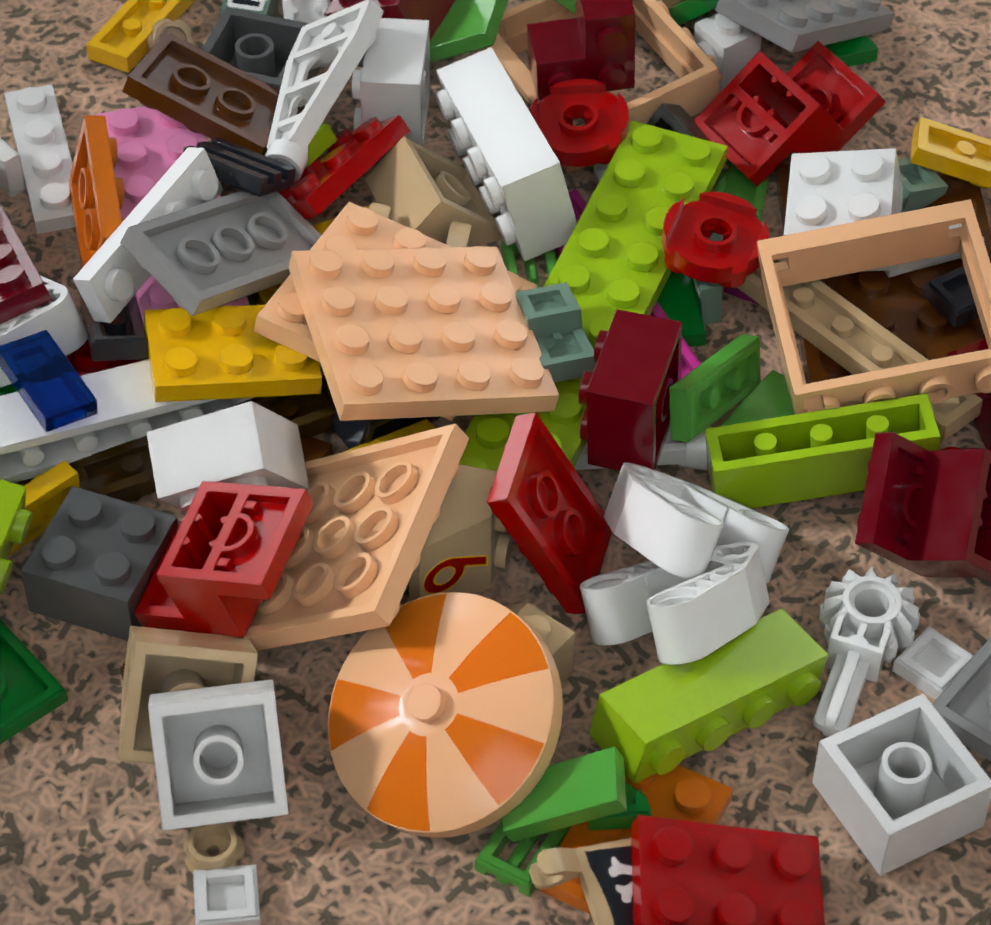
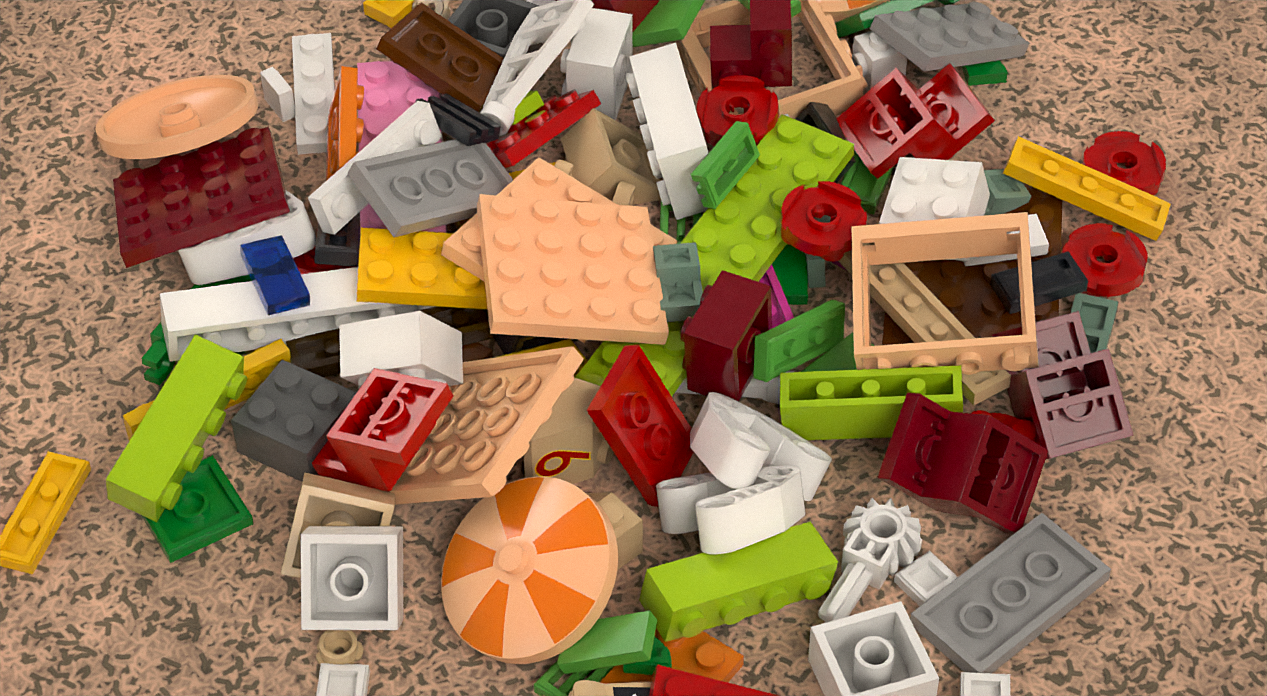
camera: 10 degrees right, 0 degrees up
(583, 185) = (722, 160): none -> bright green tile

